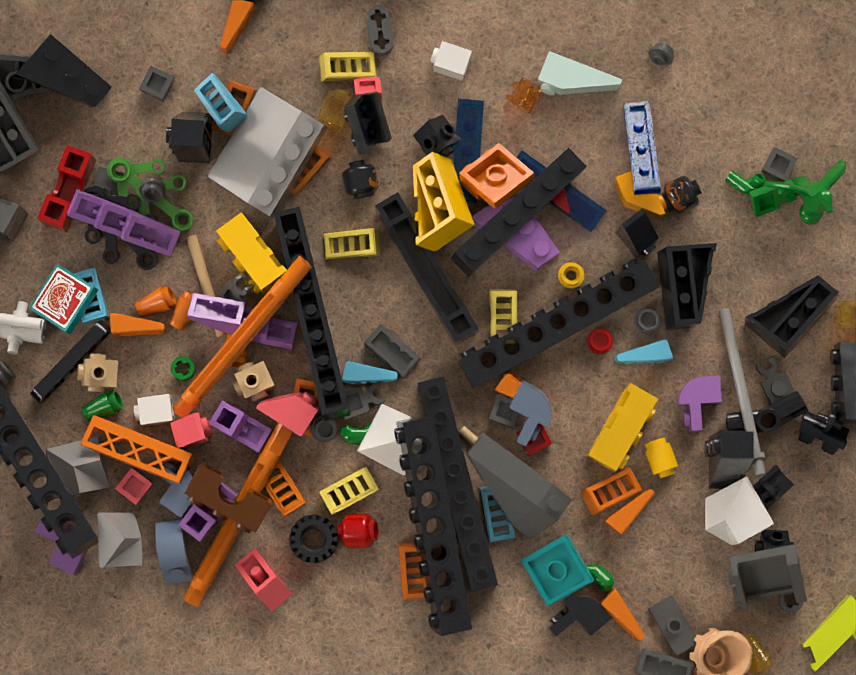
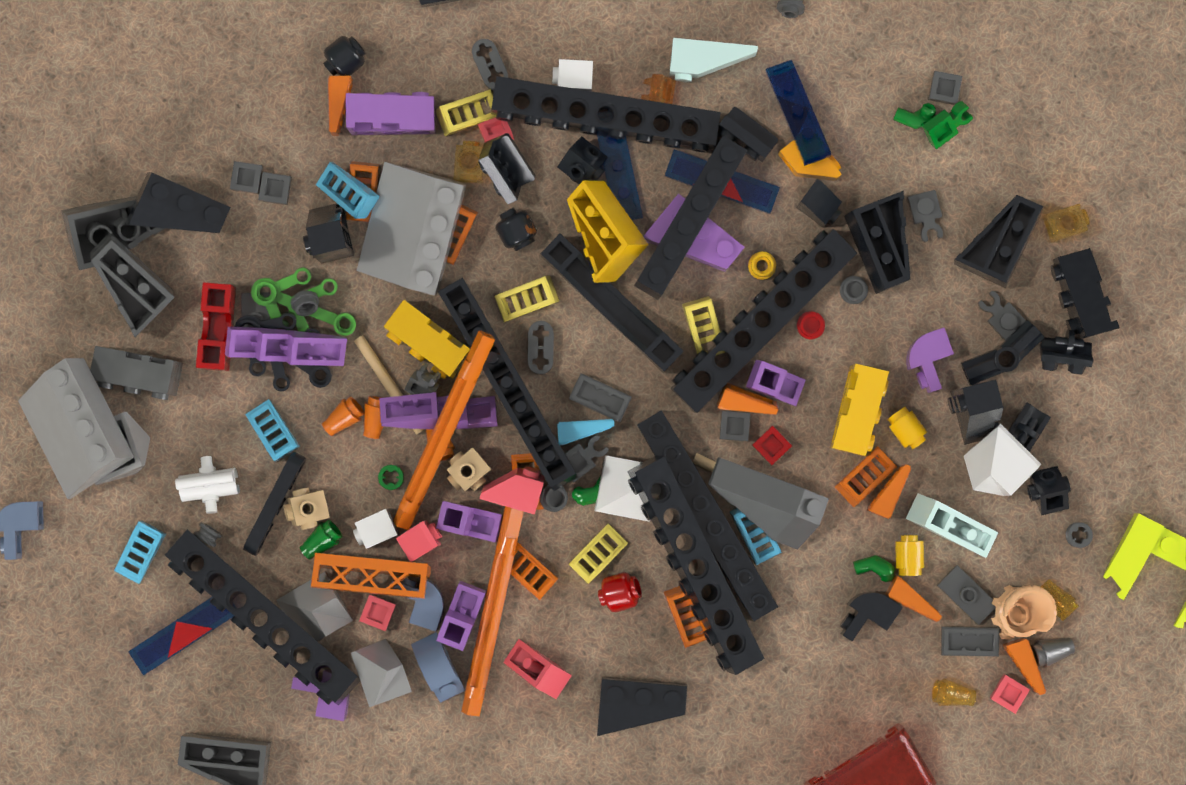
camera: 10 degrees left, 5 degrees up
(63, 299) = (247, 441): tile -> none
(131, 326) = (324, 449): orange slope -> none
(134, 66) = (246, 177): none -> dark grey plate
(206, 490) = (502, 607): reddish brown arch -> none
(278, 46) = (390, 113): none -> medium lavender wedge
(297, 534) = (569, 629): black tyre -> none
(344, 636) = (637, 703): none -> black wedge
(345, 290) = (548, 348): none -> dark grey beam
(461, 88) = (704, 120): none -> black brick
(495, 176) = (656, 187): orange plate -> none
(536, 406) = (761, 413): sand blue brick -> none
(553, 382) = (775, 382): none -> medium lavender brick
(557, 570) = (833, 573): teal tile -> none
(592, 155) = (748, 134): none -> black bracket
(631, 574) = (909, 555): none -> yellow brick
(653, 353) = (869, 322): medium azure slope -> none
(677, 557) = (951, 525): none -> light aqua slope
(681, 194) = (852, 148): black head -> none
(731, 268) = (925, 210): none -> dark grey plate
(741, 388) = (970, 334): light grey bar -> none
(766, 575) = (1047, 518): dark grey panel -> none
(814, 195) = (989, 110): green animal -> none

